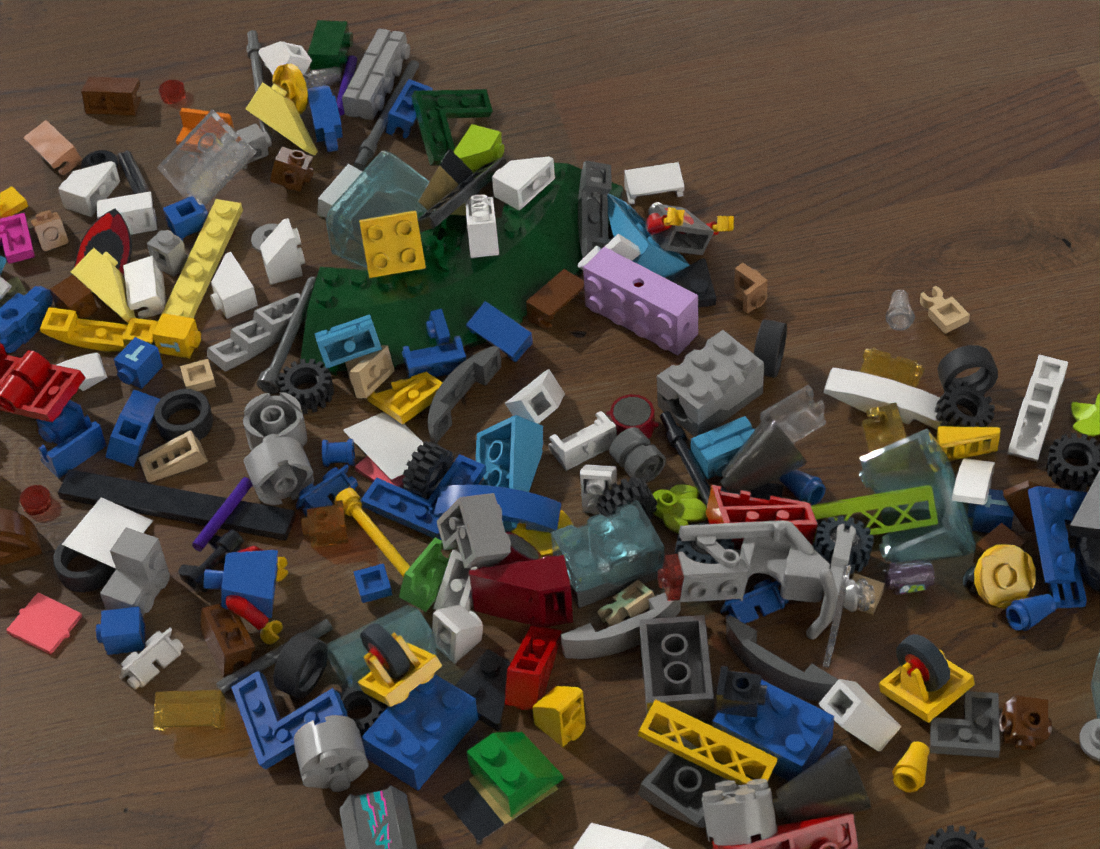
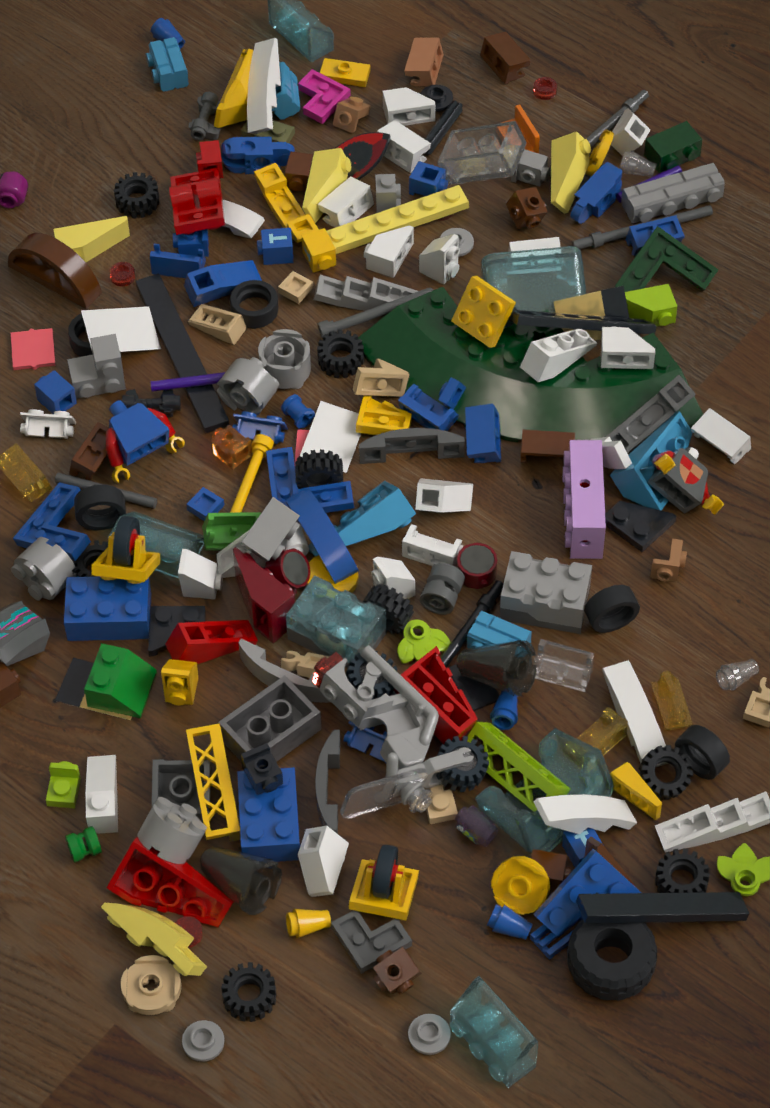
camera: 50 degrees right, 5 degrees up
(348, 341) = (387, 348): dark azure brick -> none

